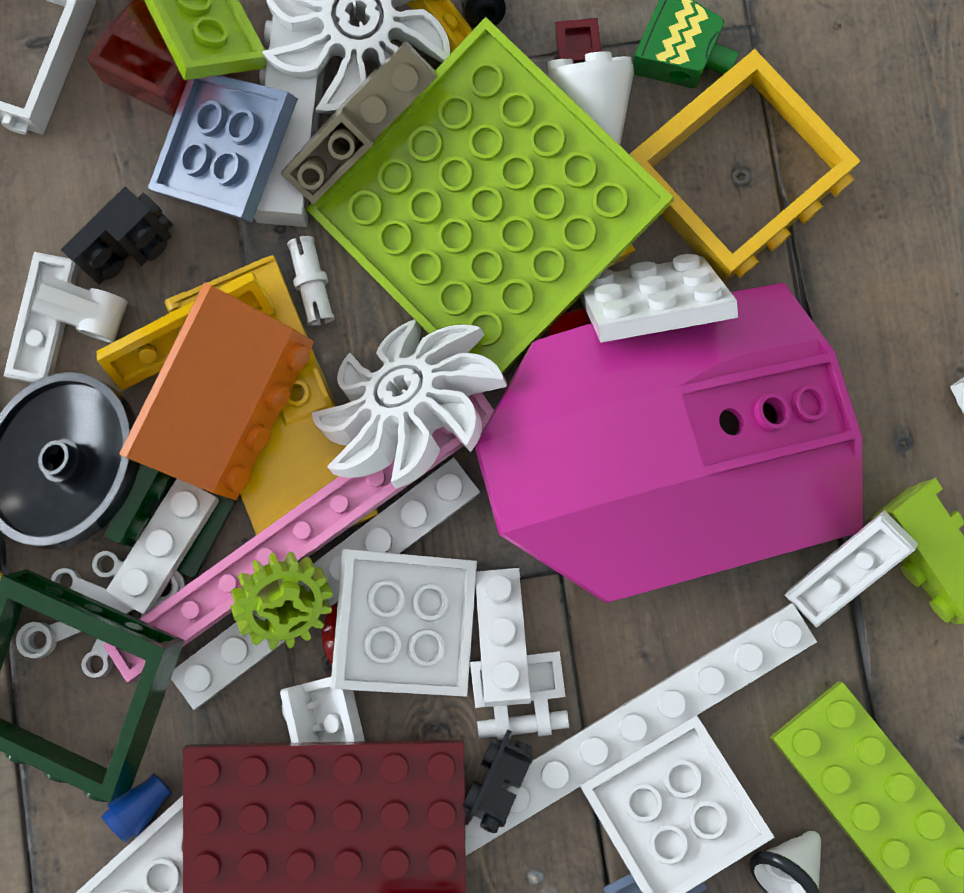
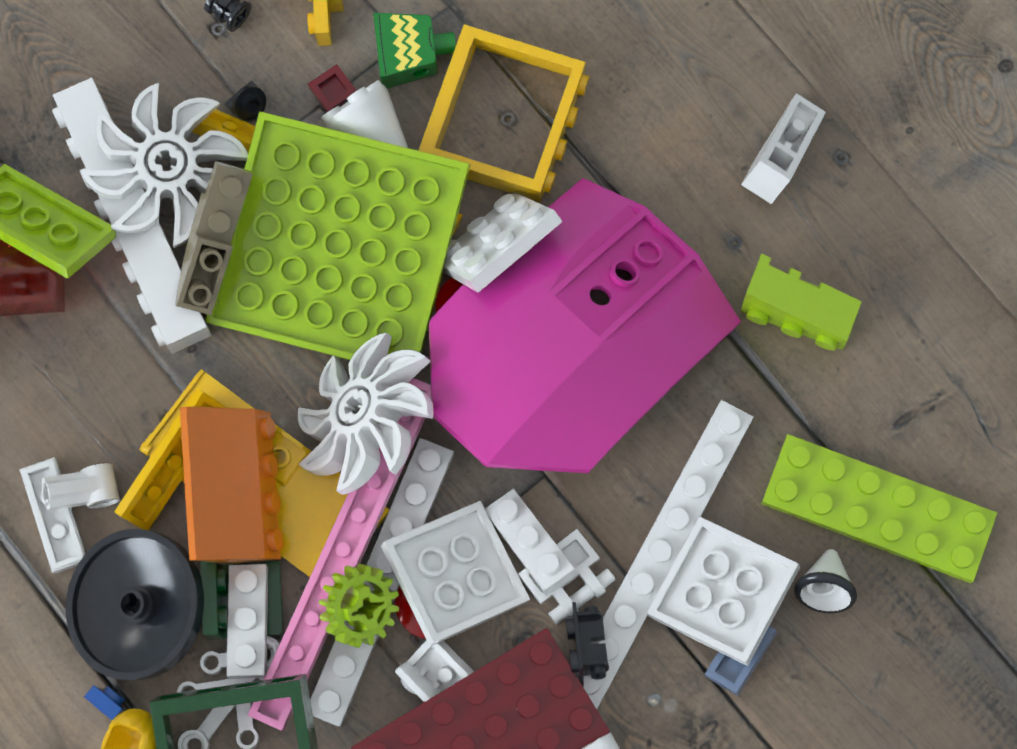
camera: 30 degrees left, 5 degrees down
(118, 230) = (85, 411): black plate -> none
(223, 145) = (118, 310): sand blue plate -> none
(310, 281) = (239, 372): white pin -> none
(851, 569) = (744, 351): white tile -> none

